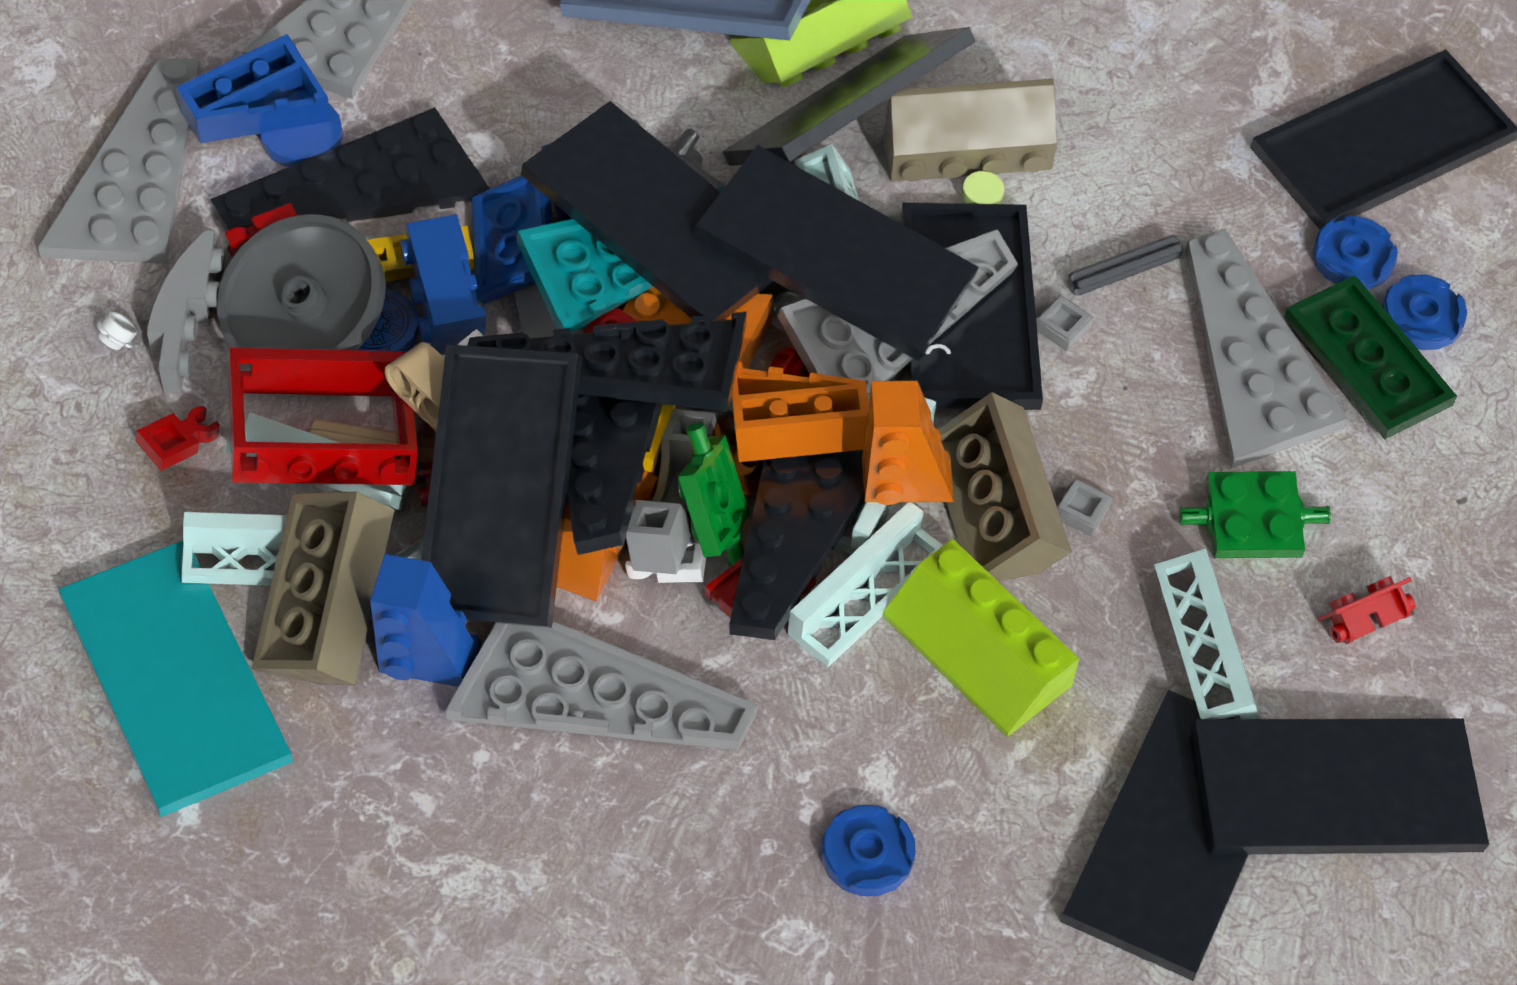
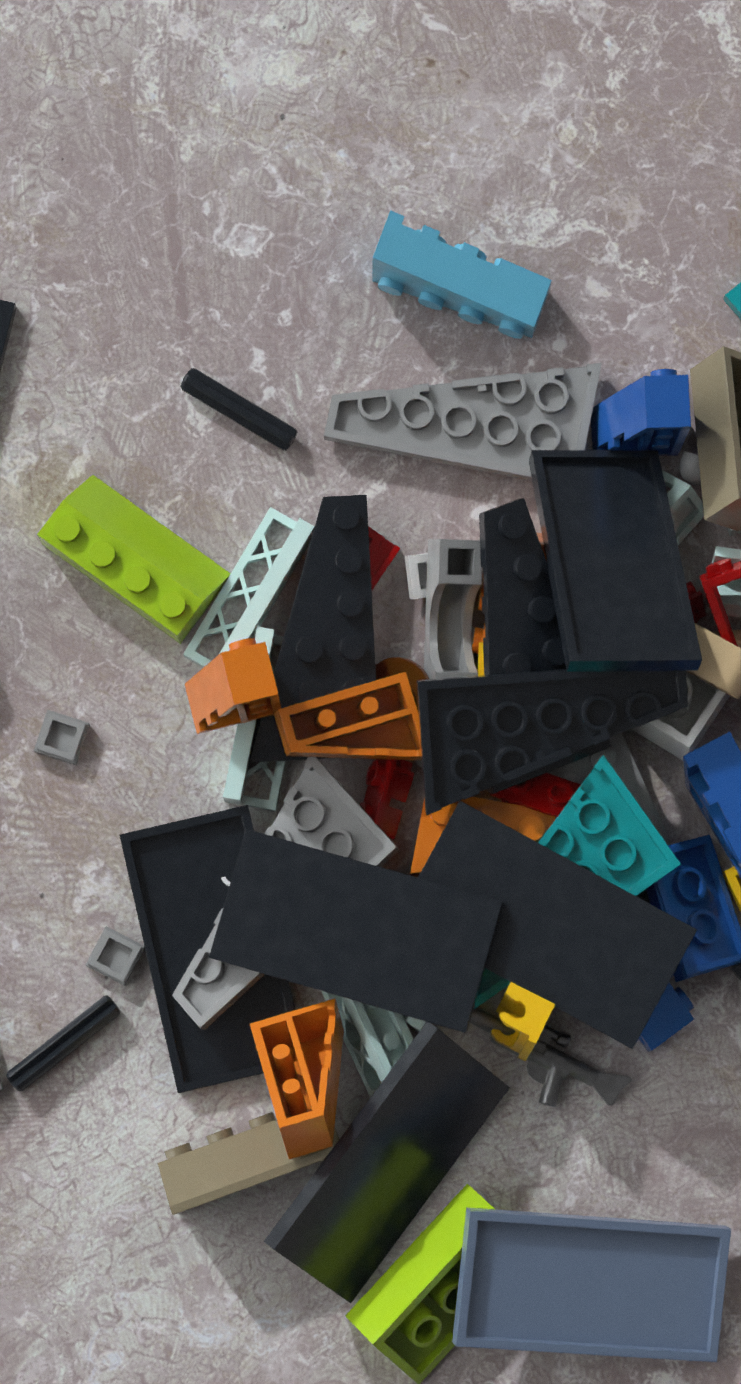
camera: 170 degrees right, 25 degrees up
(574, 823) = (458, 278): none -> medium azure wedge
(694, 150) = (524, 1014): none -> yellow hinge
(713, 495) = (411, 619): green plate -> none
(840, 758) = (239, 409): none -> black axle
(868, 850) = (196, 329): blue tile -> none
(915, 156) = (302, 1073): none -> orange wedge
(982, 188) = (226, 1105): yellowish green tile -> none
(1002, 491) = (144, 723): dark tan slope -> none

